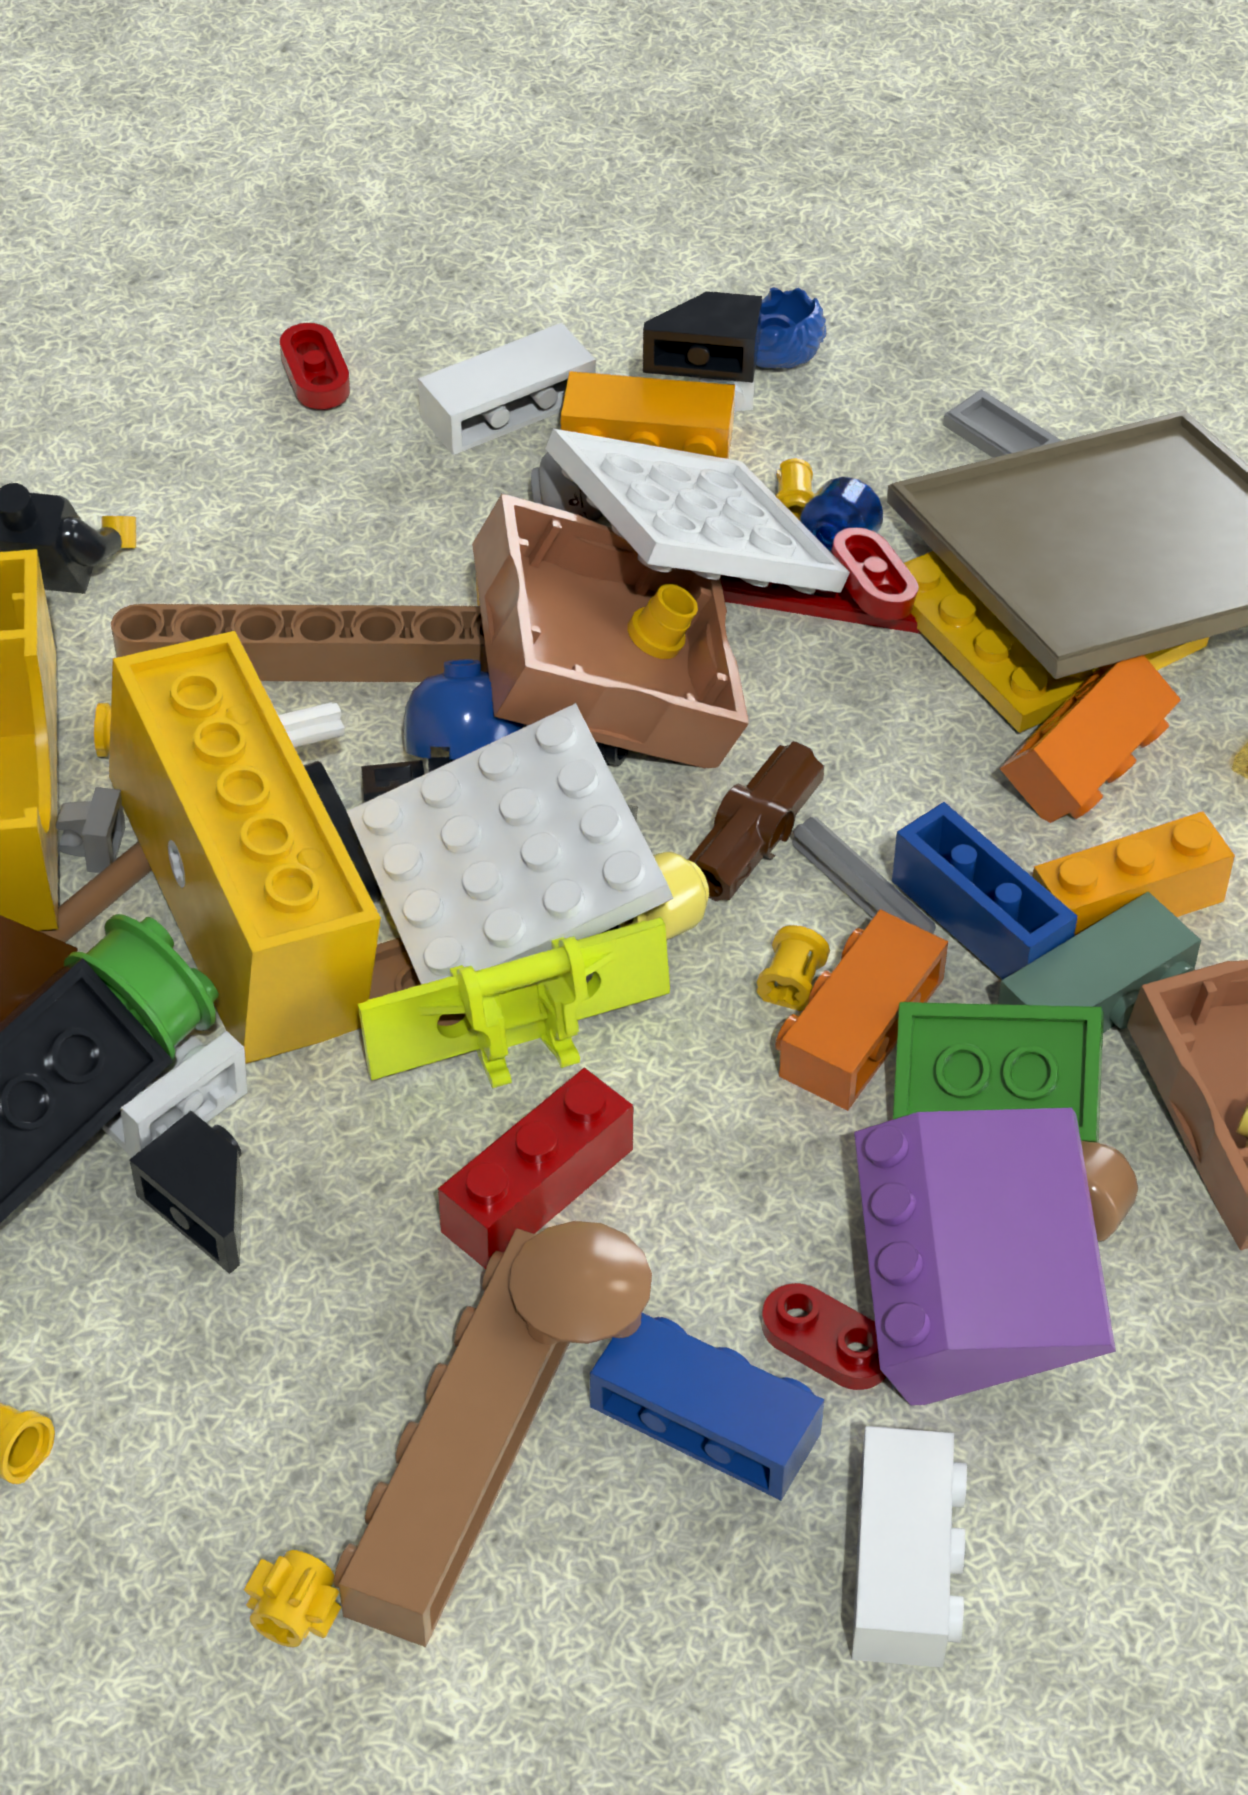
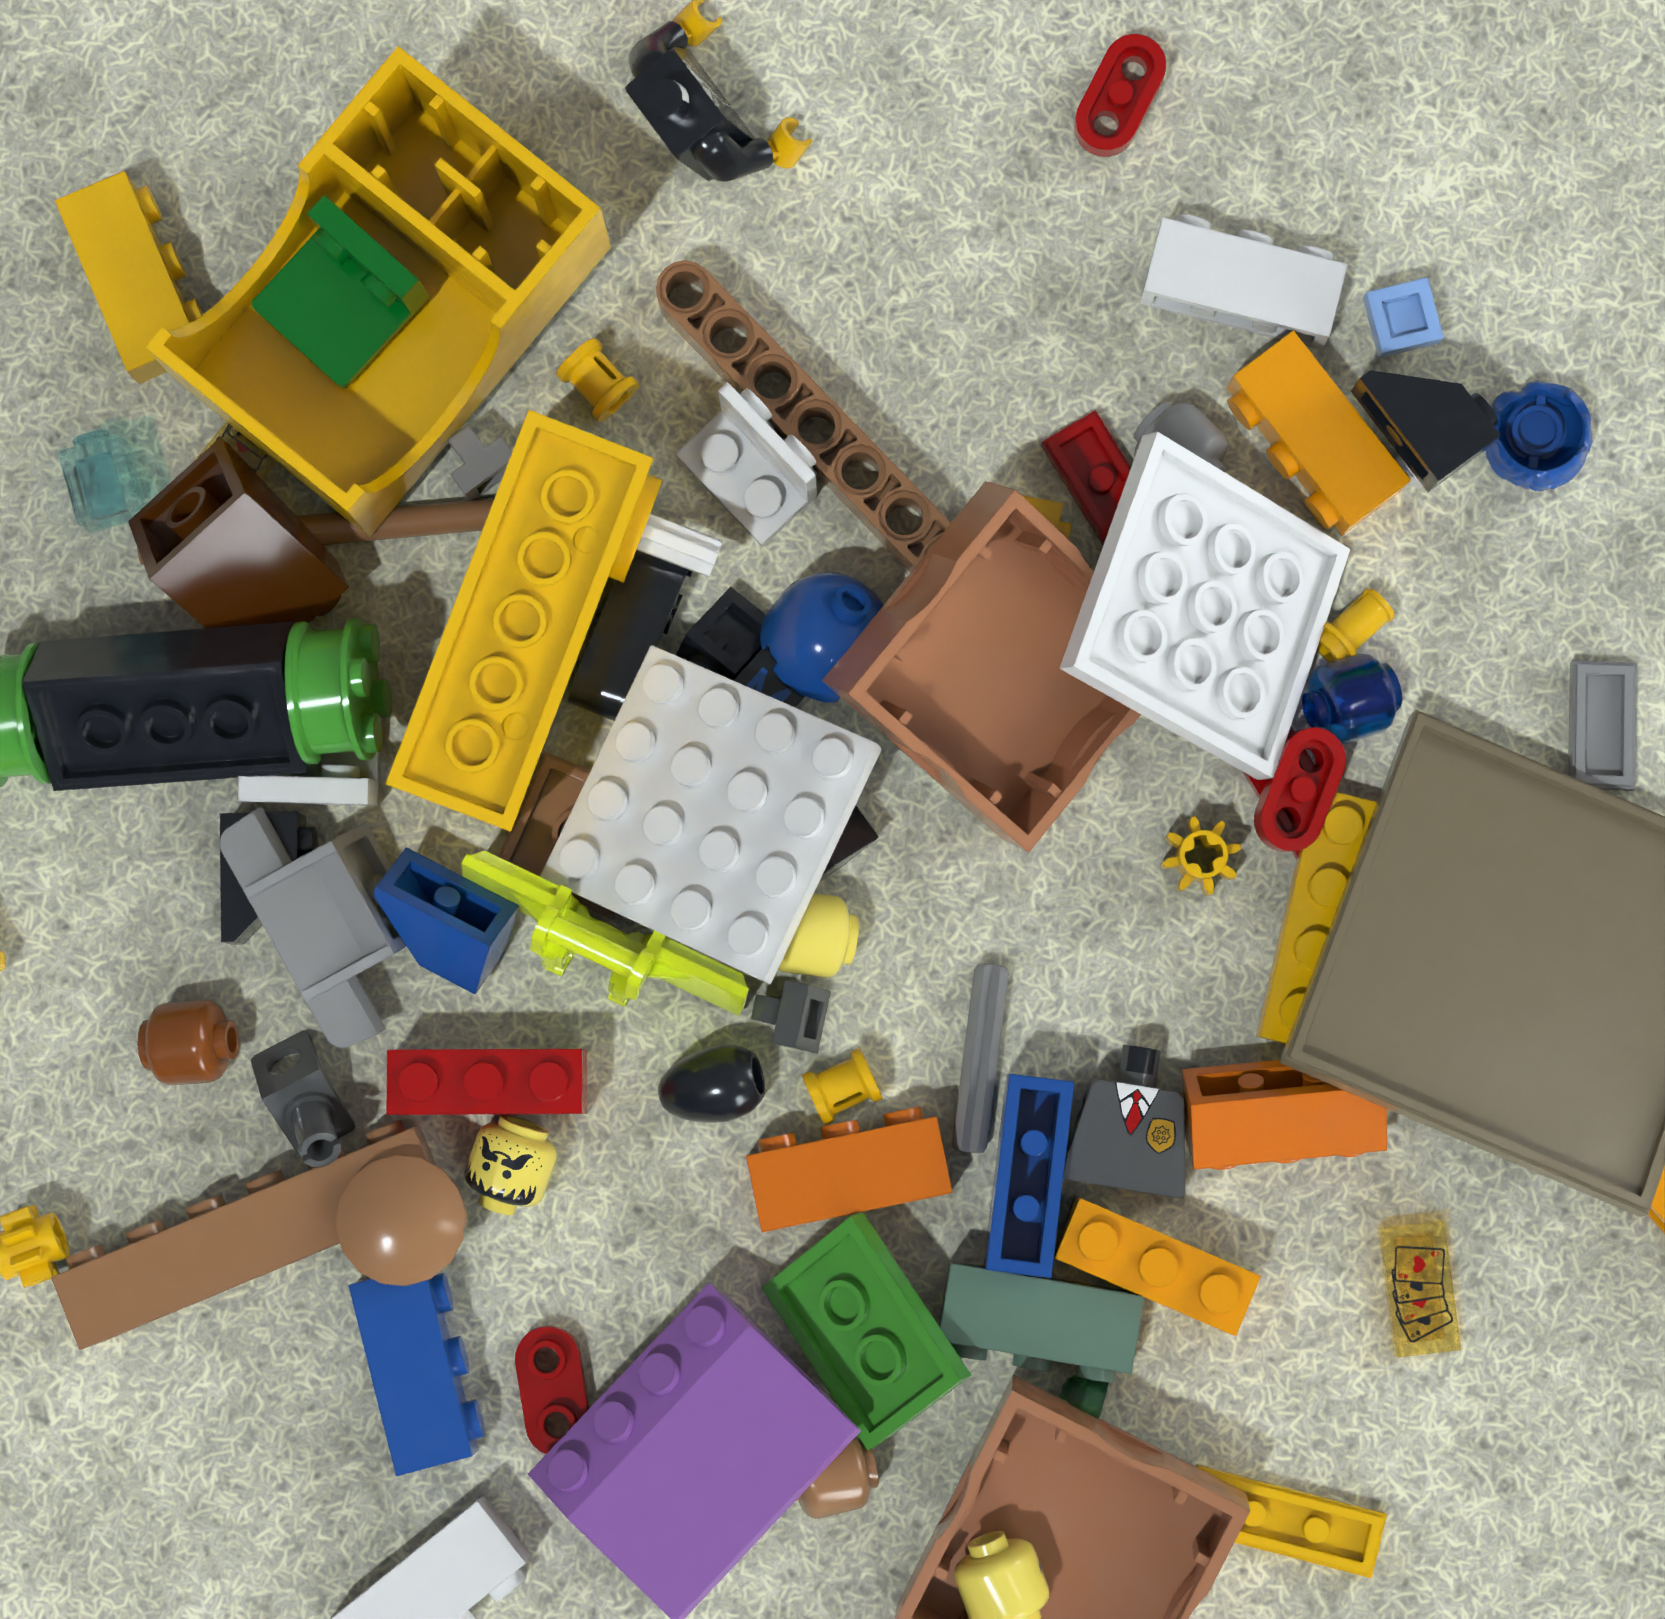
camera: 50 degrees right, 35 degrees up
(269, 1345) = (187, 1042): none -> dark orange head
(287, 1161) = (319, 917): none -> light grey plate
(305, 660) = (751, 466): none -> white bracket
(392, 1089) = (446, 919): none -> blue slope
(410, 1304) = (303, 1100): none -> dark grey bracket
(620, 1196) = (510, 1164): none -> light yellow head
(621, 333) = (1403, 317): none -> light blue tile
(663, 622) = (1063, 690): yellow piece -> none
(703, 1036) = (713, 1085): none -> black animal
(705, 955) = (796, 1016): none -> dark grey tile
(757, 818) = (958, 928): reddish brown piece -> none
(858, 661) = (1209, 840): none -> yellow gear
(1022, 817) = (1130, 1131): none -> dark grey torso

